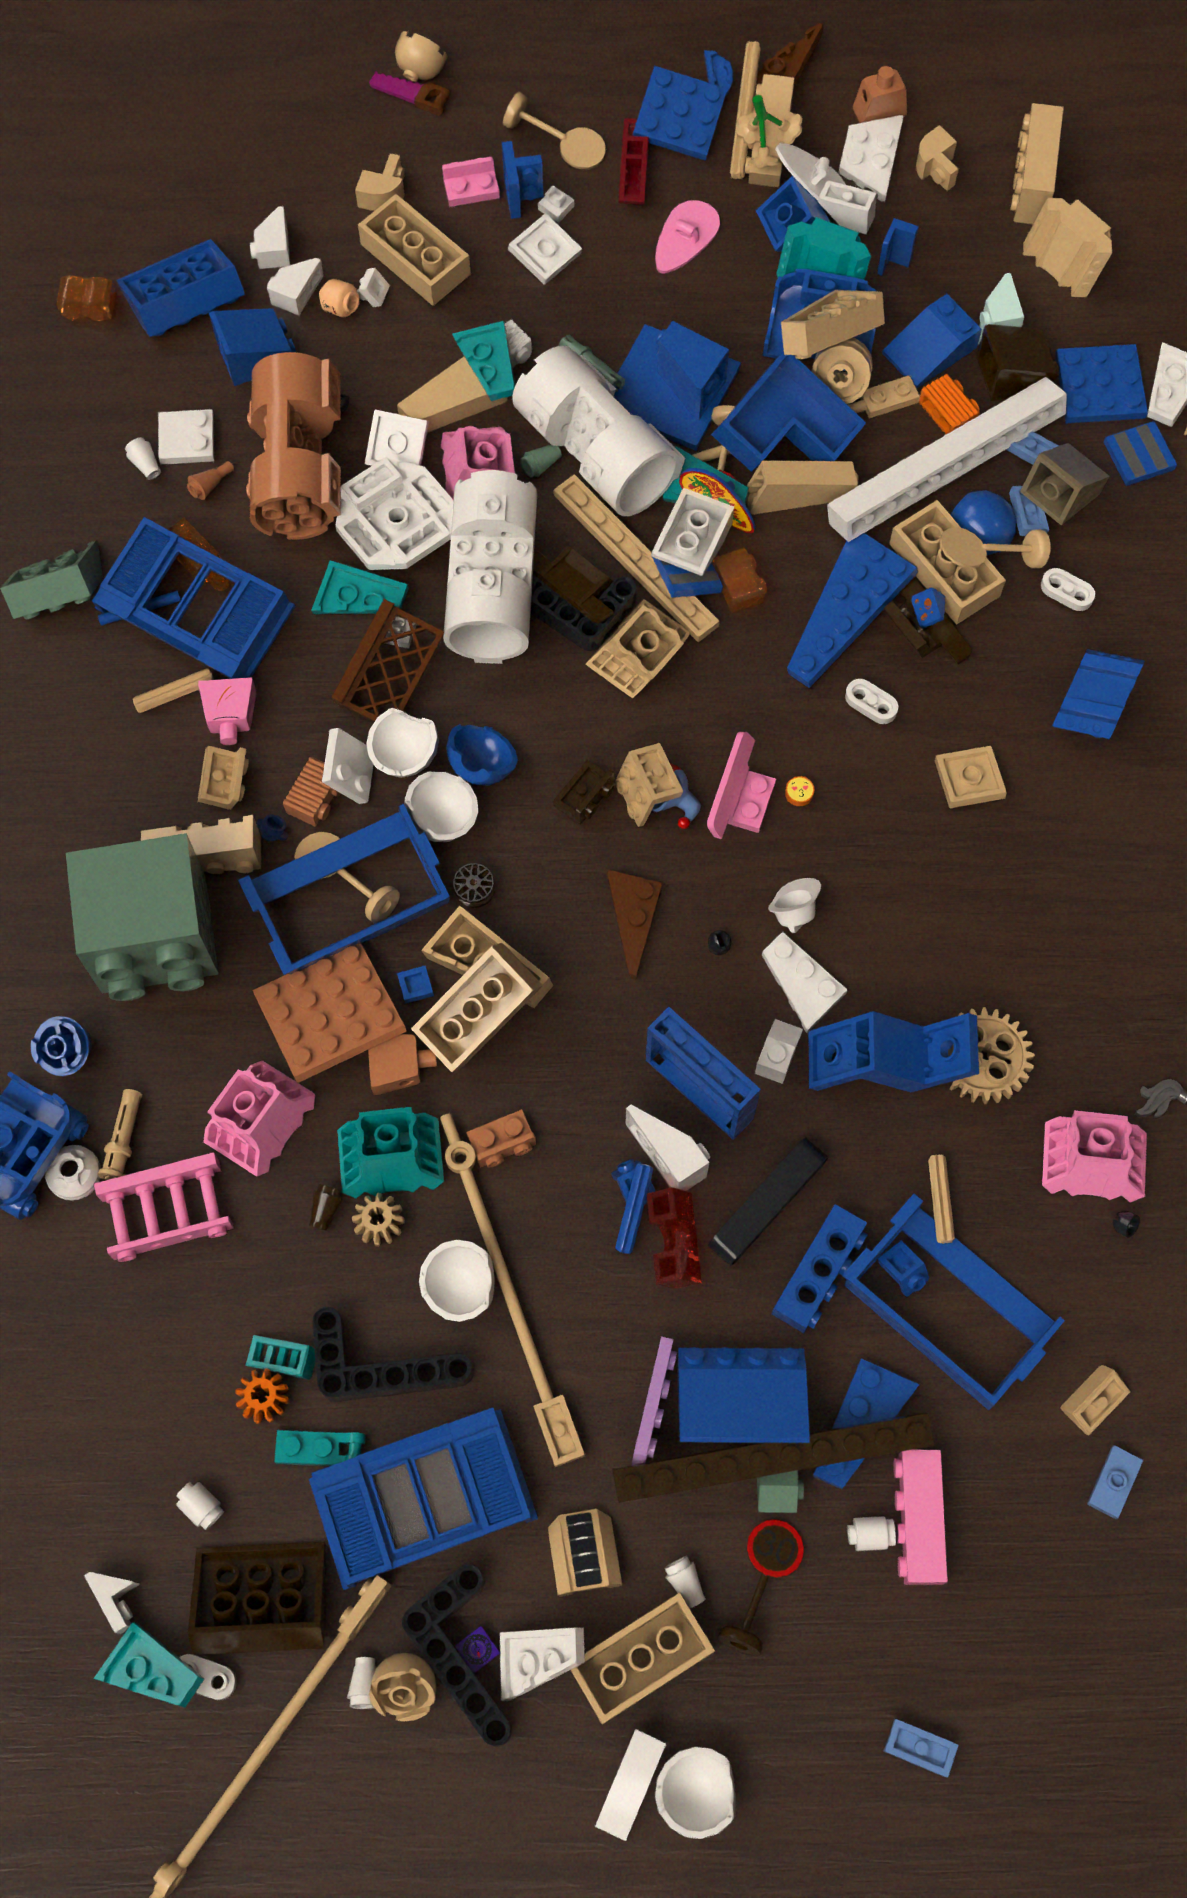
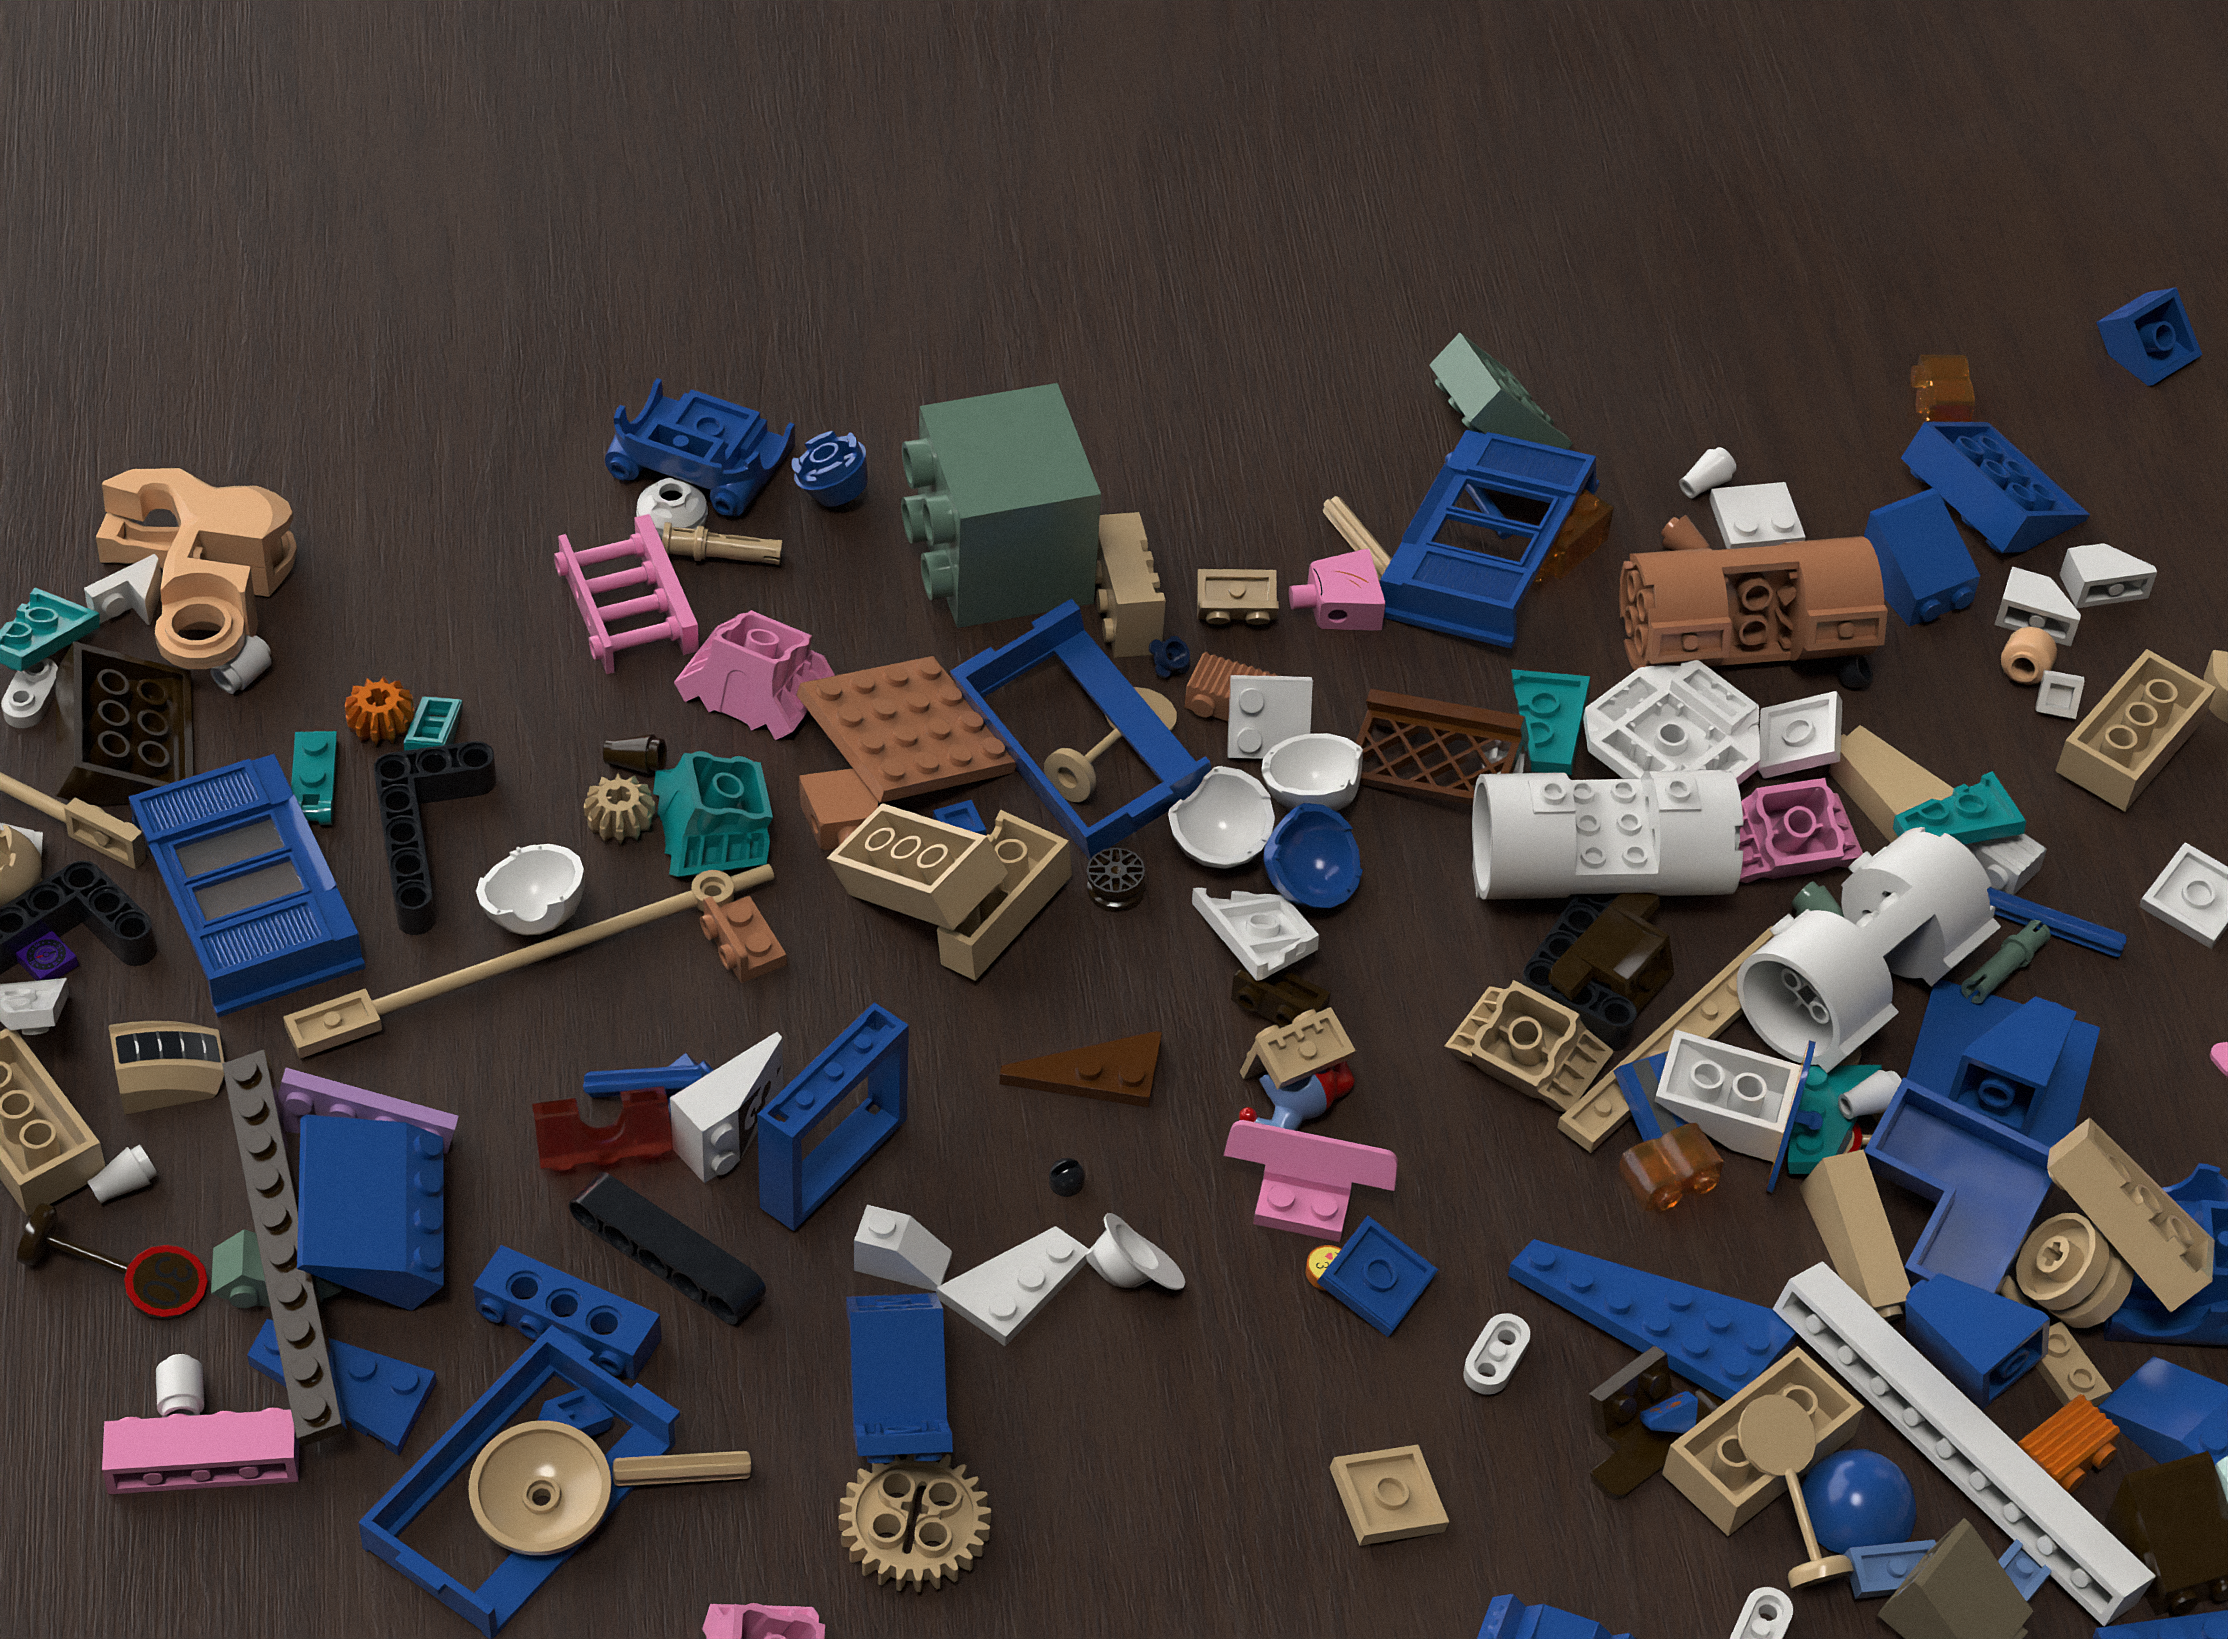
camera: 80 degrees right, 20 degrees down
(54, 165) = (2150, 335): none -> blue slope
(74, 1521) = (213, 564): none -> light nougat animal
(532, 796) = (1259, 929): none -> white wing
(559, 328) = (2059, 923): none -> blue axle
(705, 450) = (1870, 1095): none -> white cone
(811, 761) = (1377, 1276): none -> blue tile
(888, 434) = (1975, 1335): none -> blue slope
(982, 1277) = (537, 1462): none -> tan dish

